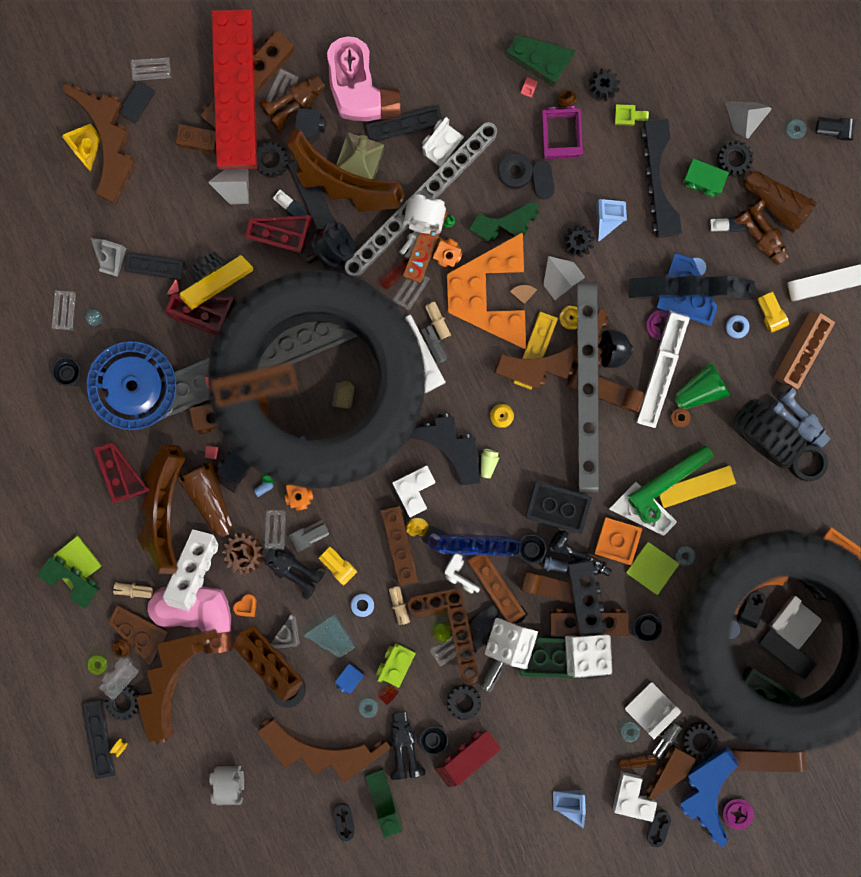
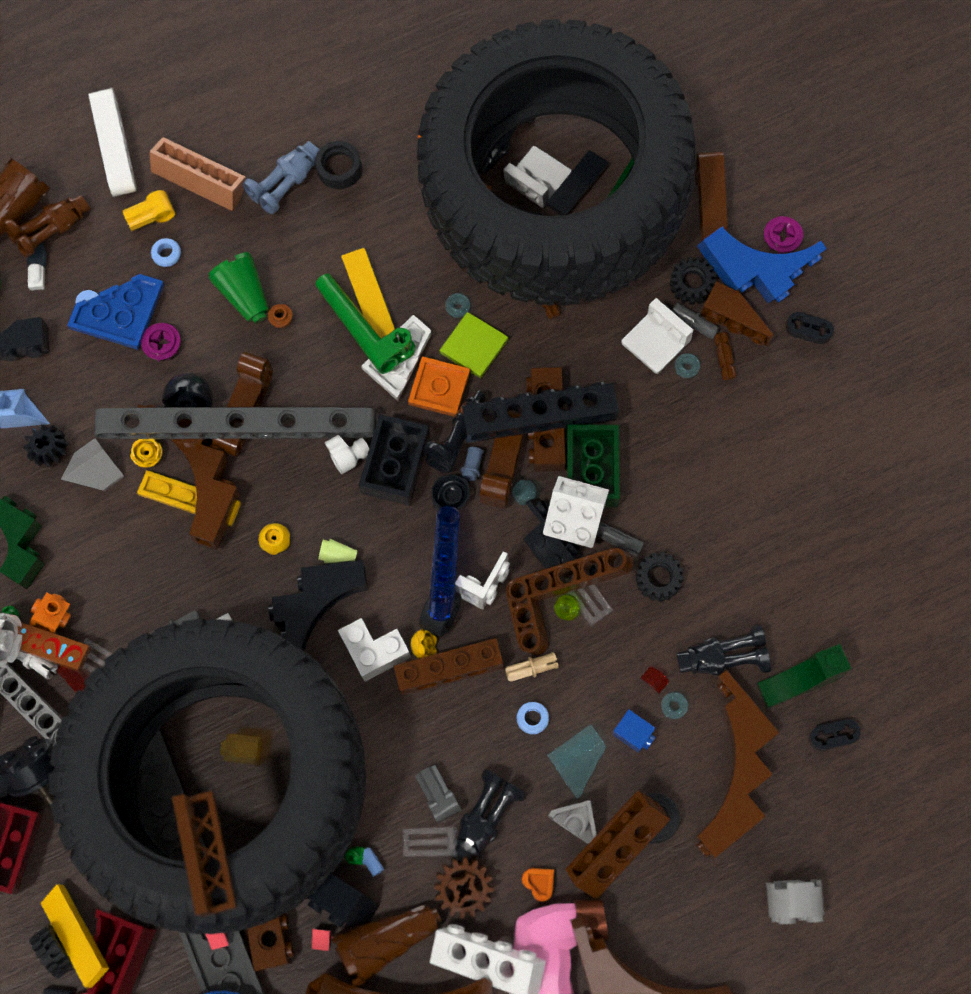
camera: 85 degrees left, 15 degrees down
(291, 498) = (374, 802): orange brick -> none
(341, 569) = (483, 747): yellow piece -> none
(396, 666) = (613, 669): lime bracket -> none
(433, 740) = (713, 614): black hat -> none
(438, 320) = (143, 625): tan axle -> none
(467, 758) = (736, 568): dark red wedge -> none
(468, 292) = (106, 585): orange wing -> none
(496, 588) = (502, 536): dark orange tile -> none
(523, 292) = (111, 515): medium nougat tile -> none
(531, 604) = (524, 491): none -> clear light blue plate
(563, 469) = (346, 456): none -> white piece
(570, 804) = (787, 434): light blue slope -> none
(588, 655) = (587, 410): white bracket -> none
(628, 800) = (772, 364): white brick -> none
(647, 628) = (551, 347): black hat -> none
(663, 368) = (213, 335): white slope -> none
(692, 287) = (107, 293): black arch -> none
(769, 433) = (296, 201): black tyre -> none

